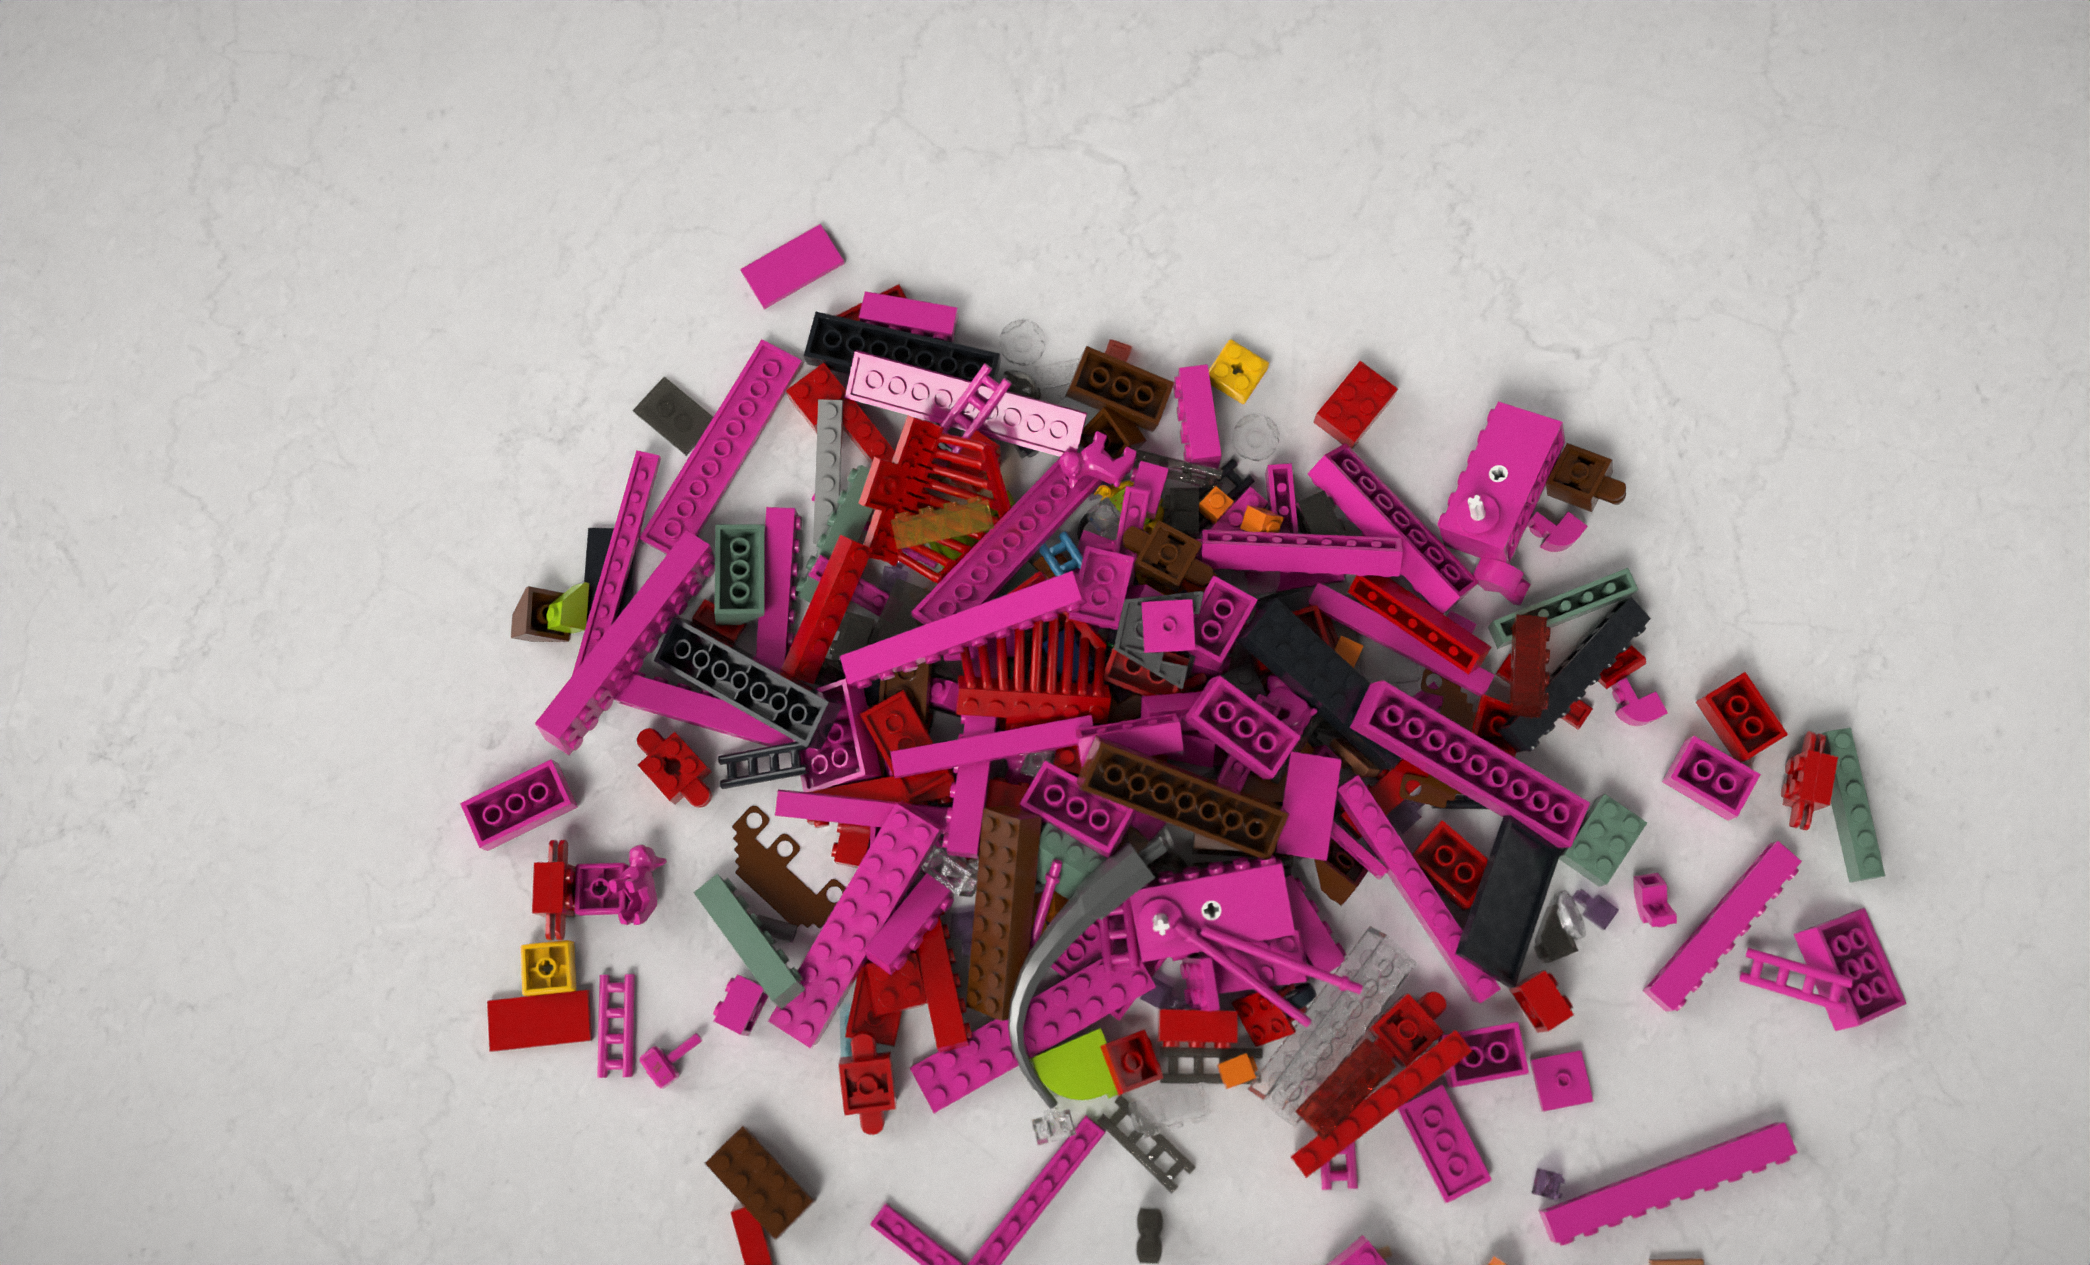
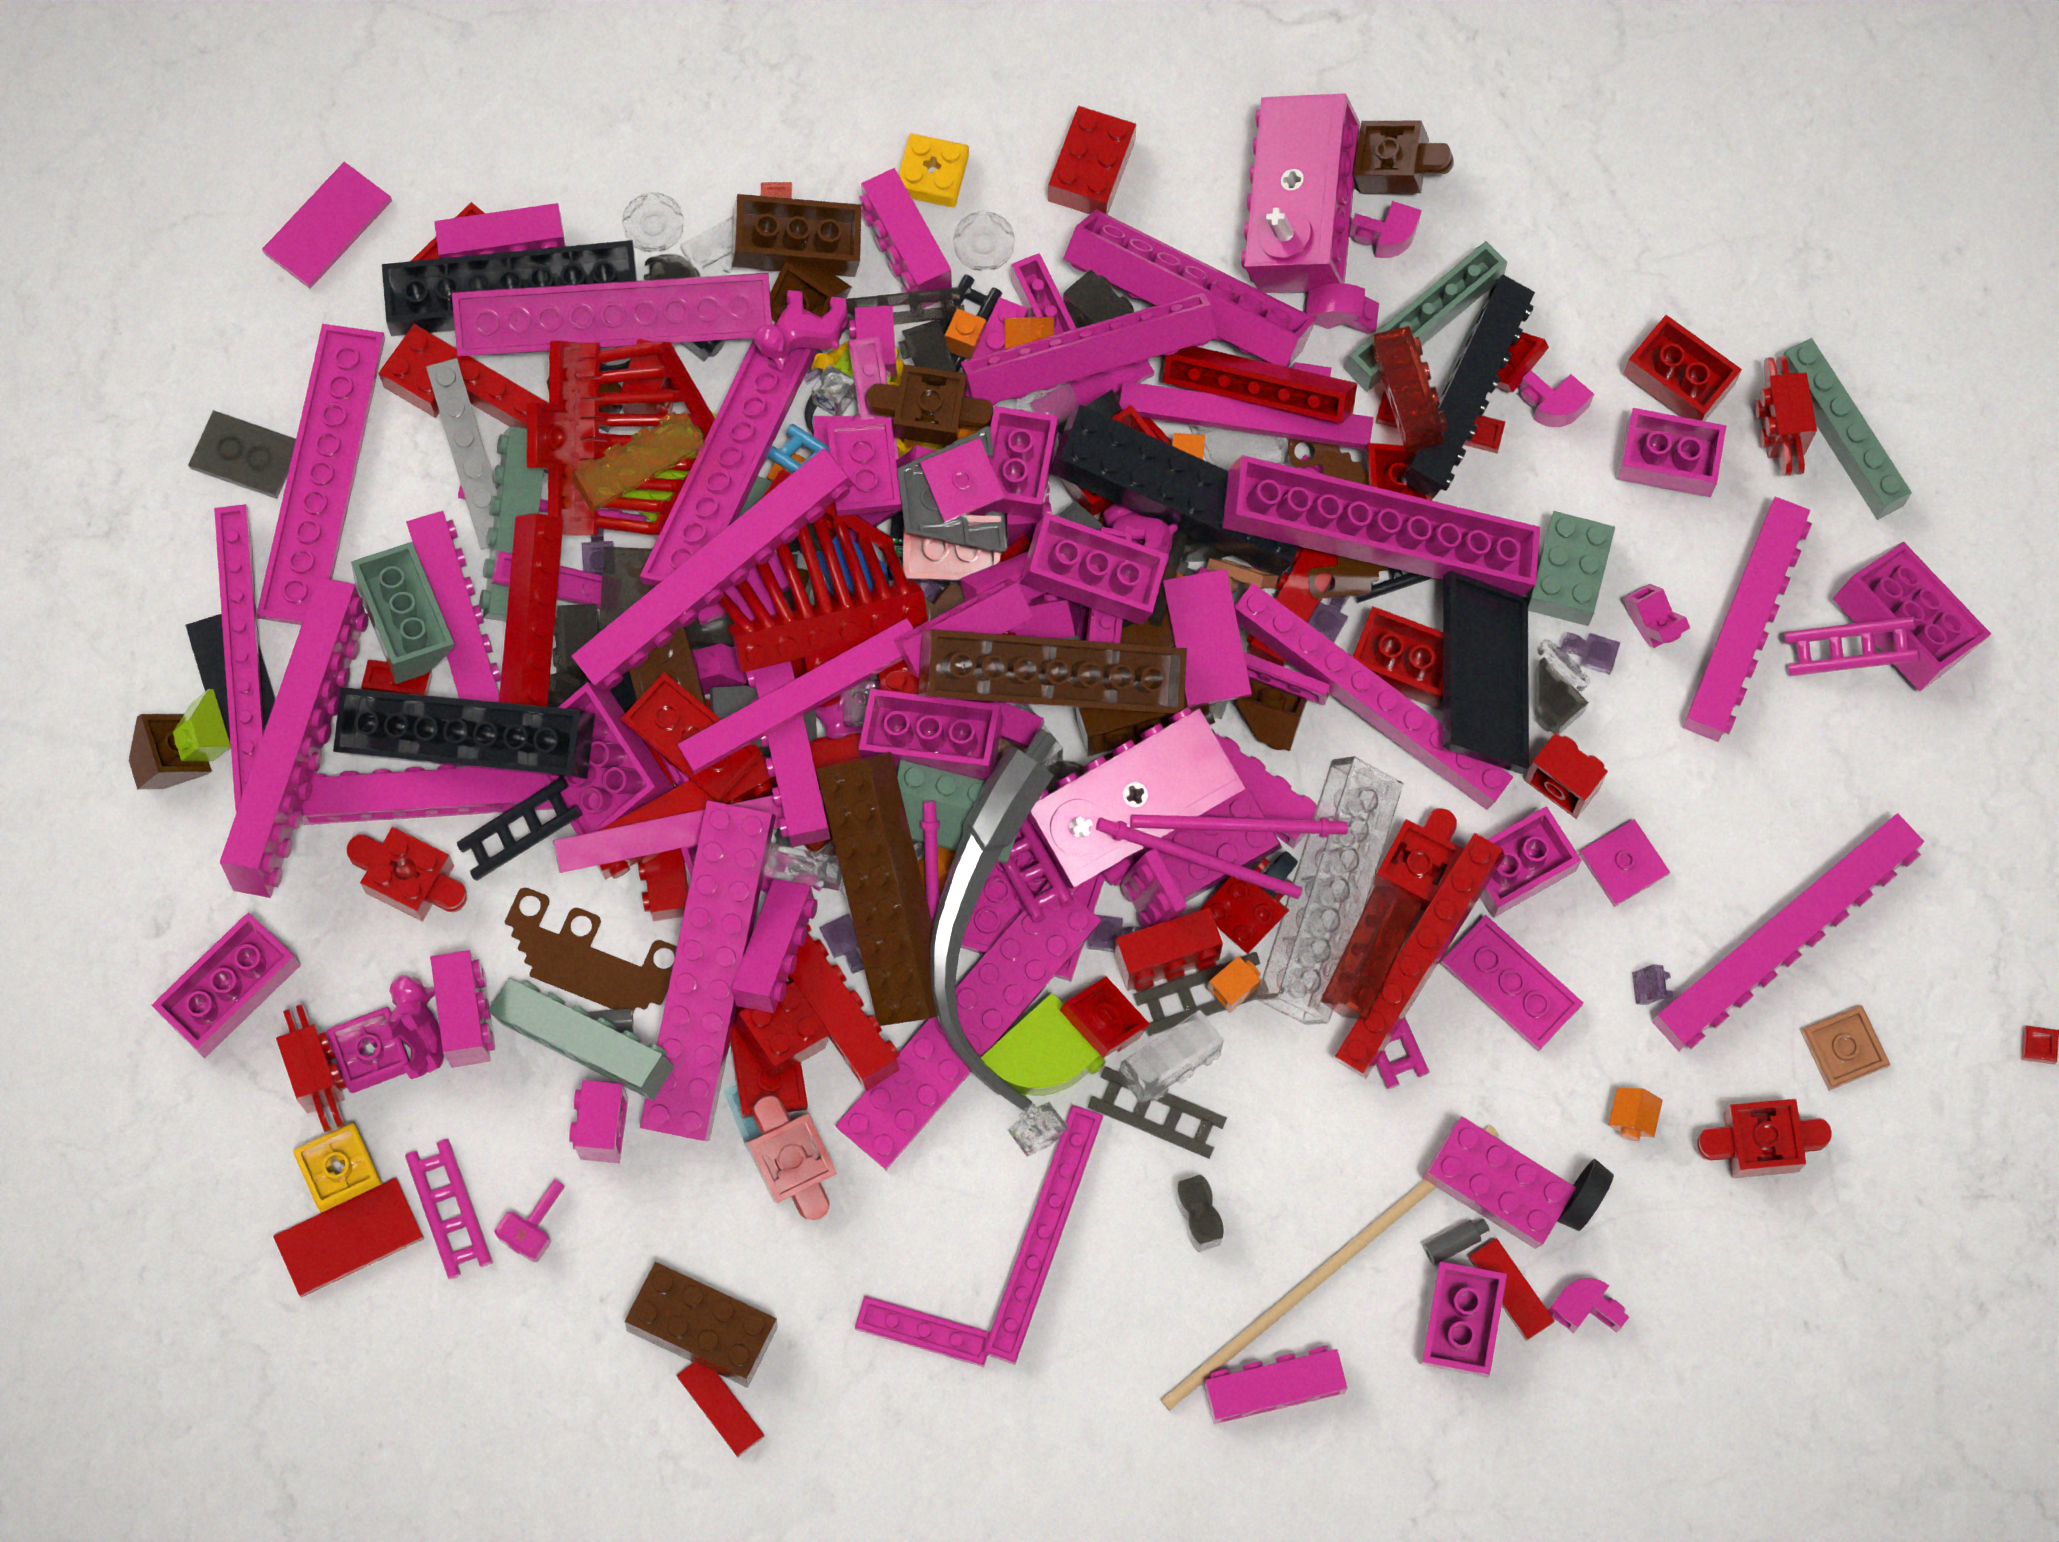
camera: 25 degrees left, 5 degrees down
(675, 884) = (462, 1008): none -> dark pink brick
(968, 396) = (615, 300): dark pink bar -> none

